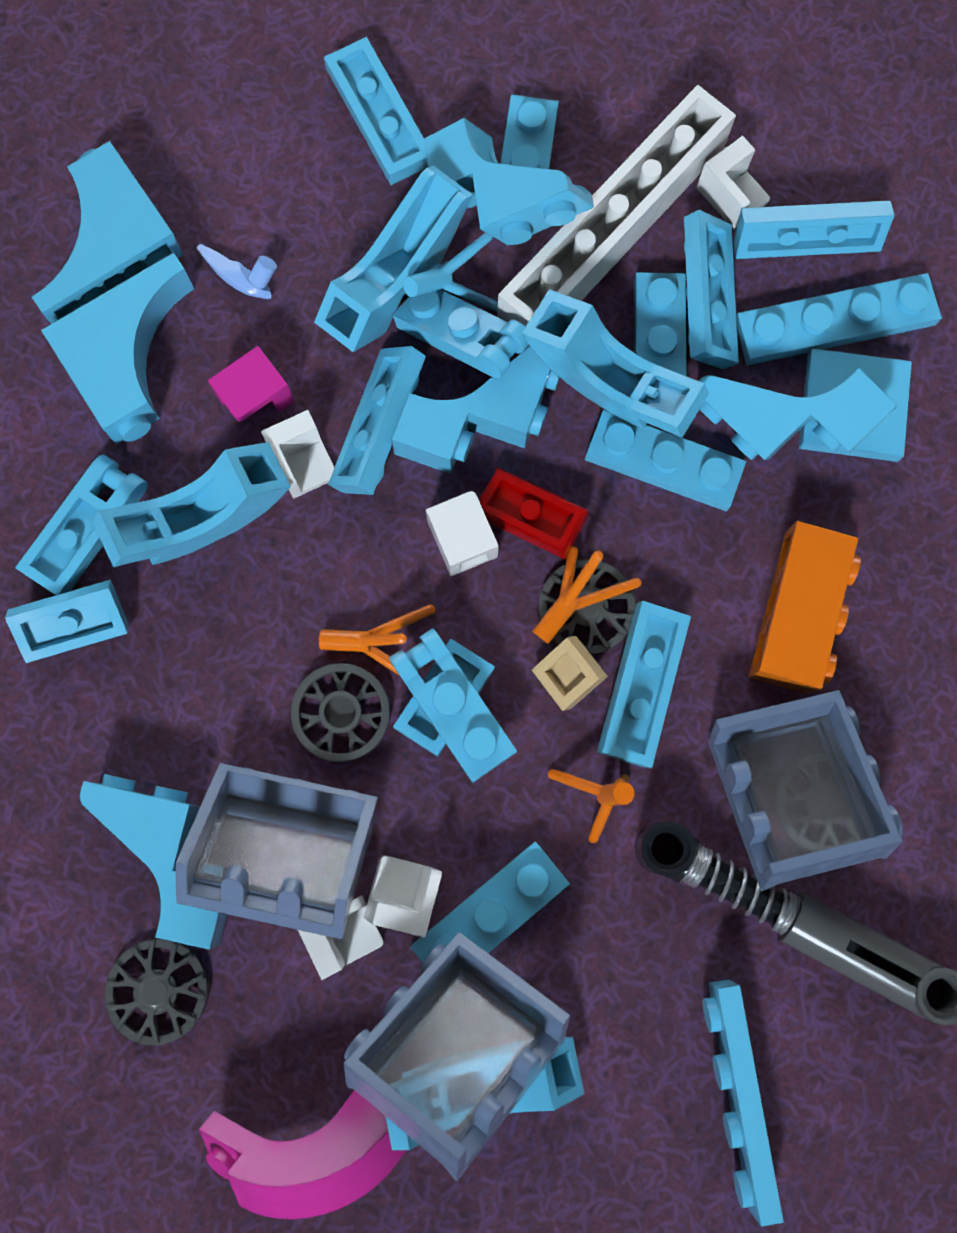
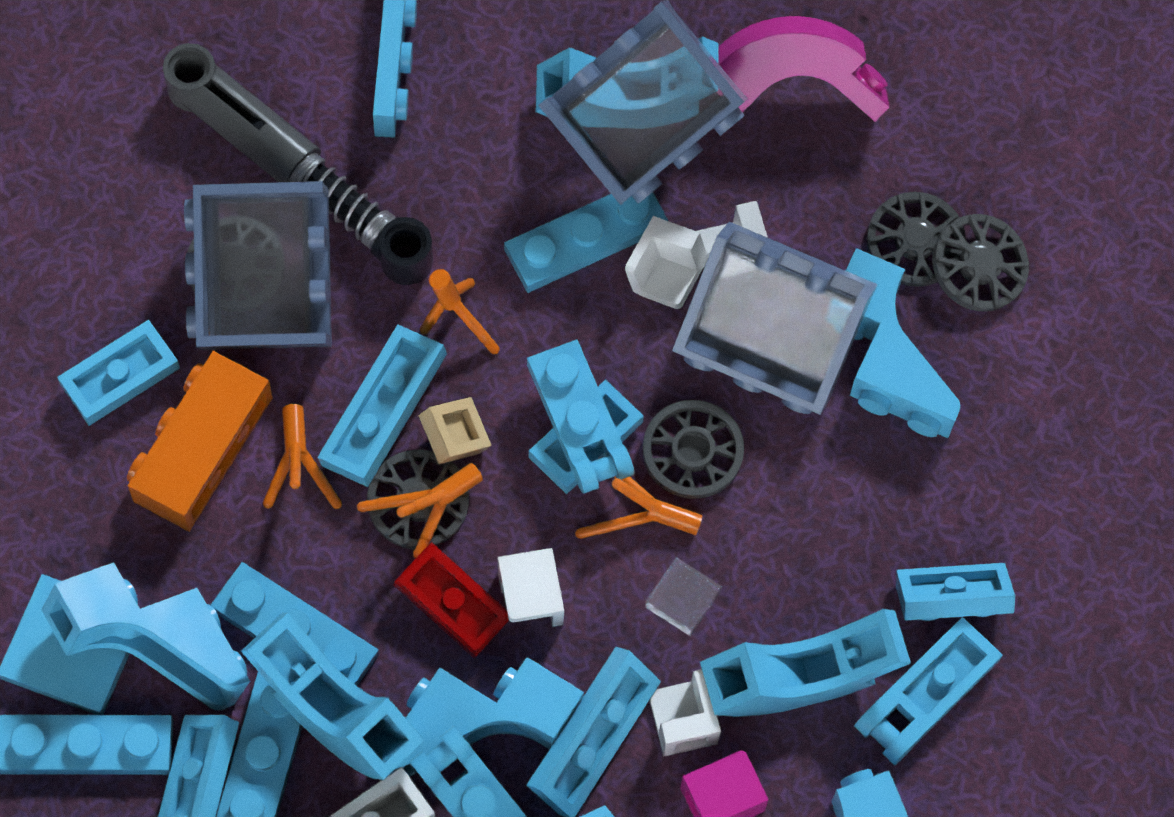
camera: 170 degrees left, 10 degrees down
(85, 977) = (980, 262): none -> dark grey wheel
(321, 562) = (683, 596): none -> clear plate
(713, 626) = (291, 460): none -> orange plant
(900, 661) = (118, 372): none -> medium azure plate

